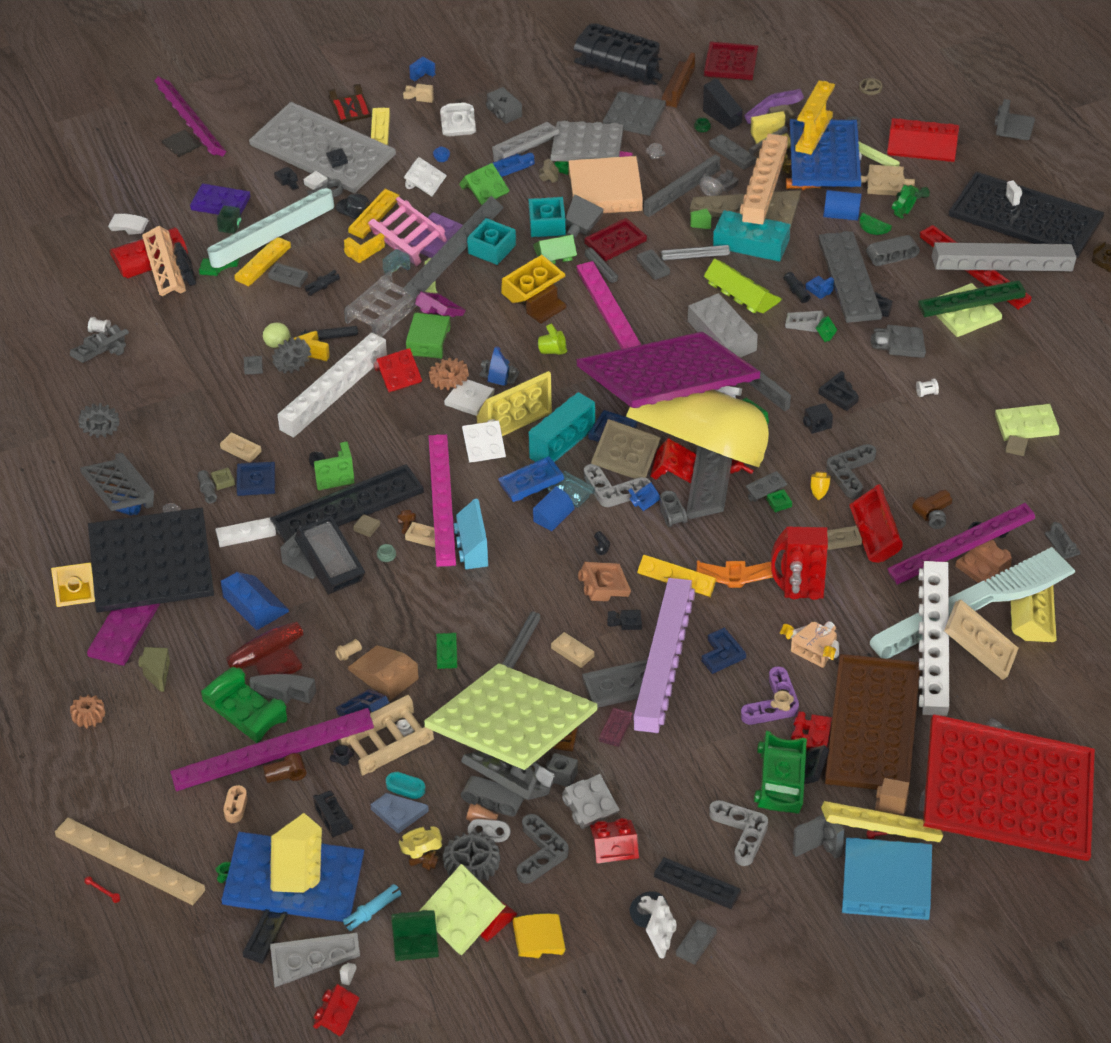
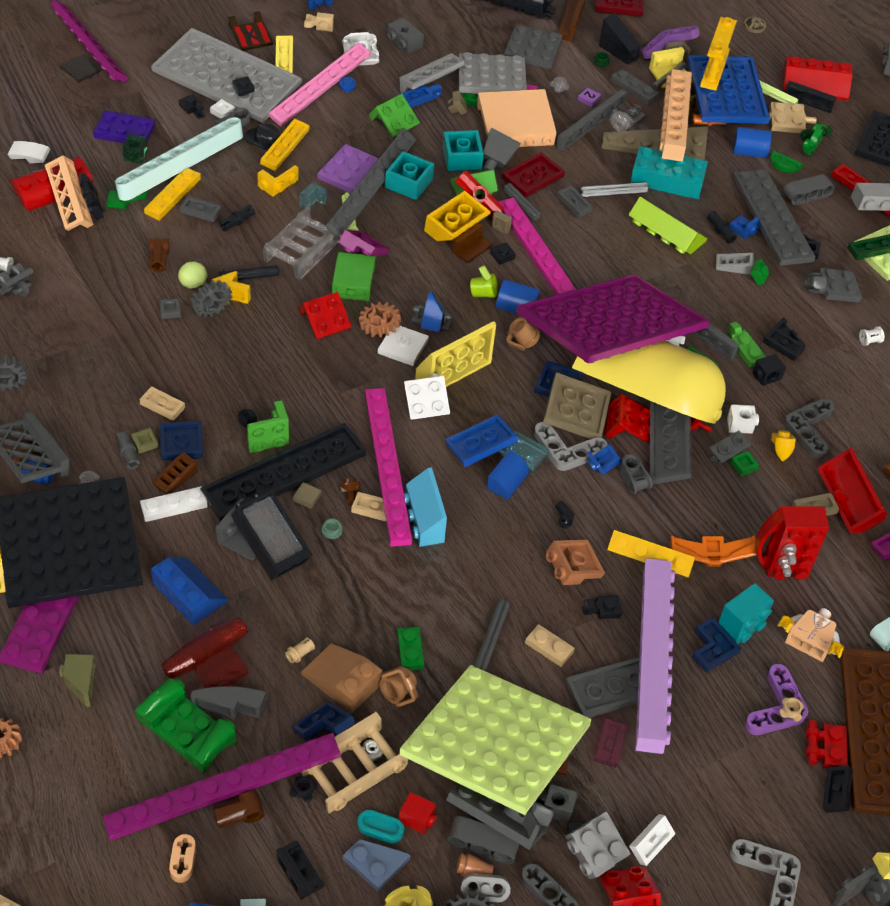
camera: 10 degrees left, 5 degrees up
(245, 313) = (158, 251): none -> reddish brown piece
(255, 497) = (183, 463): none -> reddish brown slope
(331, 385) = (256, 332): white brick -> none
(391, 237) = (308, 174): bright pink fence -> none
(406, 159) = (319, 84): none -> bright pink tile
(424, 177) = (333, 107): white hinge -> none
(431, 677) = (397, 684): none -> medium nougat piece
(437, 774) = (418, 813): none -> red brick
(547, 249) = (470, 185): none -> red piece
(562, 428) = (508, 382): teal brick -> none
(575, 313) = (502, 253): none -> black plate
(577, 284) = (501, 222): none -> dark tan tile
(579, 349) = (515, 294): none -> blue brick
(583, 384) = (524, 333): none -> medium nougat piece
(639, 799) = (652, 839): none -> white plate
(684, 163) = (589, 97): none -> medium lavender tile
(701, 219) = (616, 155): bright green slope -> none
(723, 325) = (654, 264): light grey brick -> none
(753, 624) = (746, 613): none -> teal brick
(781, 774) = (808, 803): green piece -> none
(784, 461) = (742, 418): none -> white brick
(799, 395) = (747, 347): none -> bright green hinge
(913, 159) = (811, 96): none -> black tile

